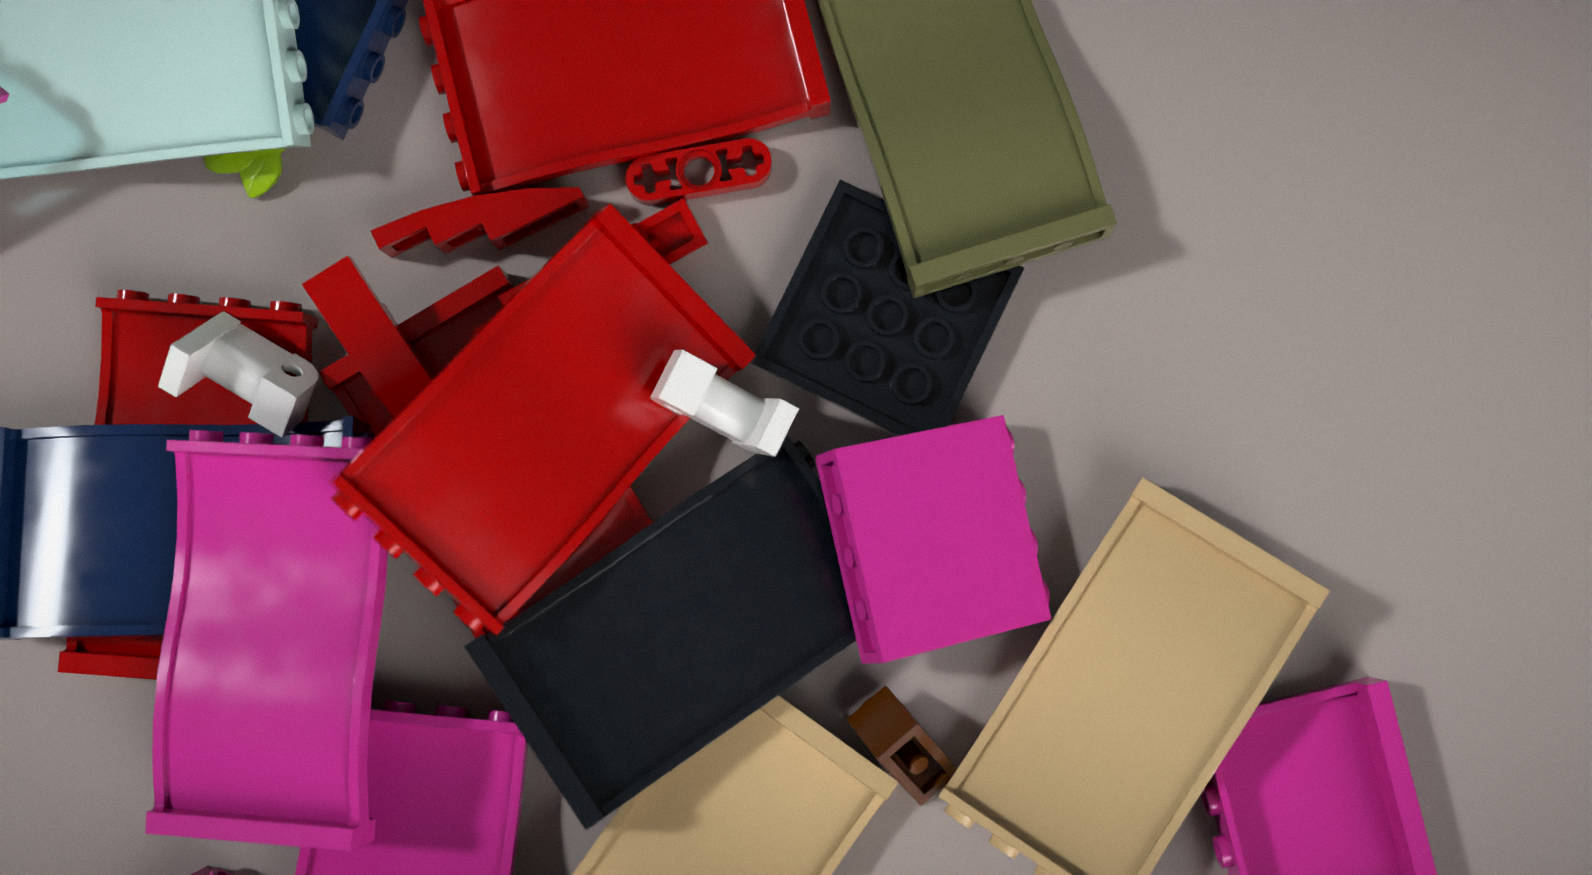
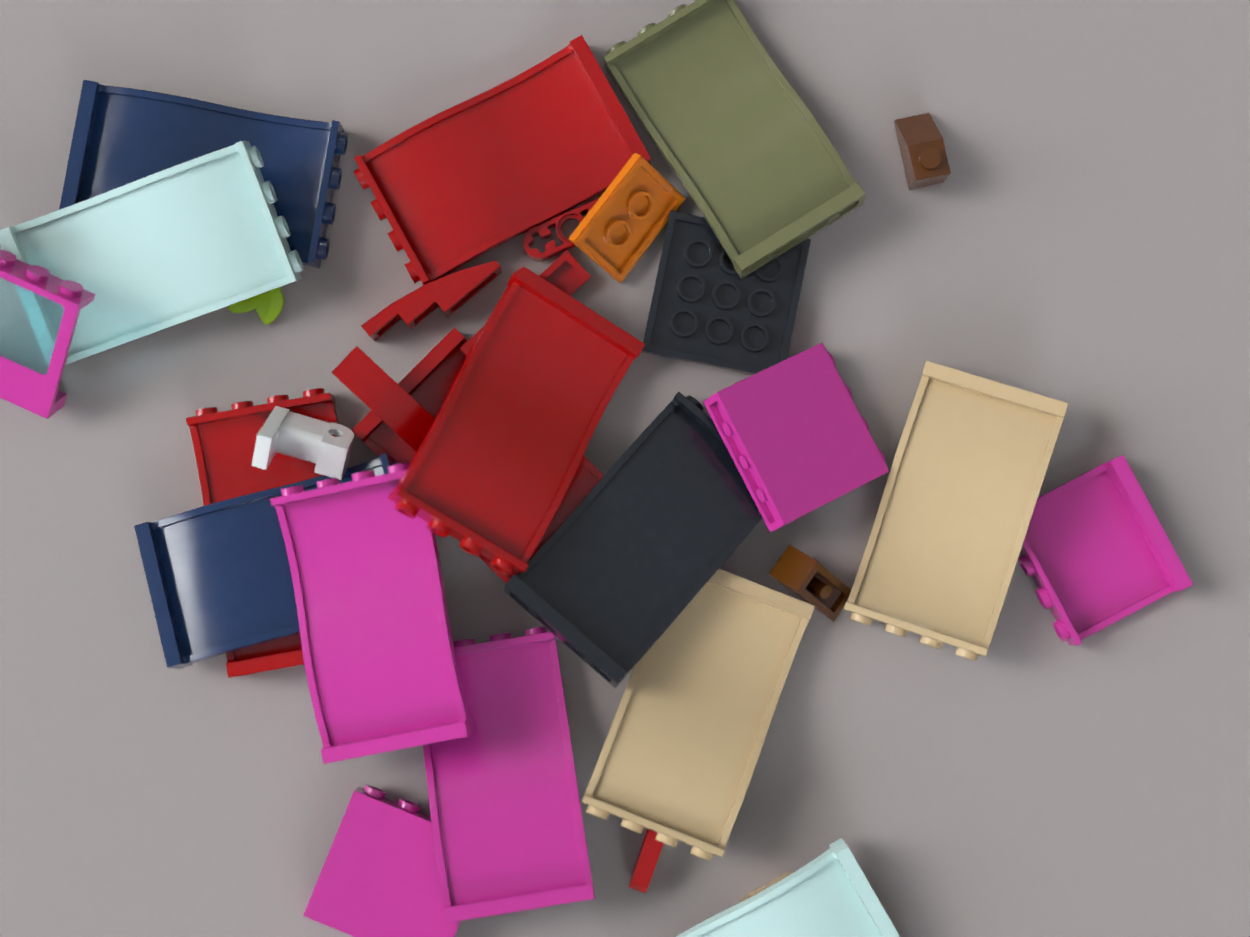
camera: 20 degrees left, 0 degrees up
(694, 390) = (613, 379): white piece -> none
(776, 174) = (627, 218): none -> orange tile
(1209, 185) = (922, 151): none -> reddish brown slope

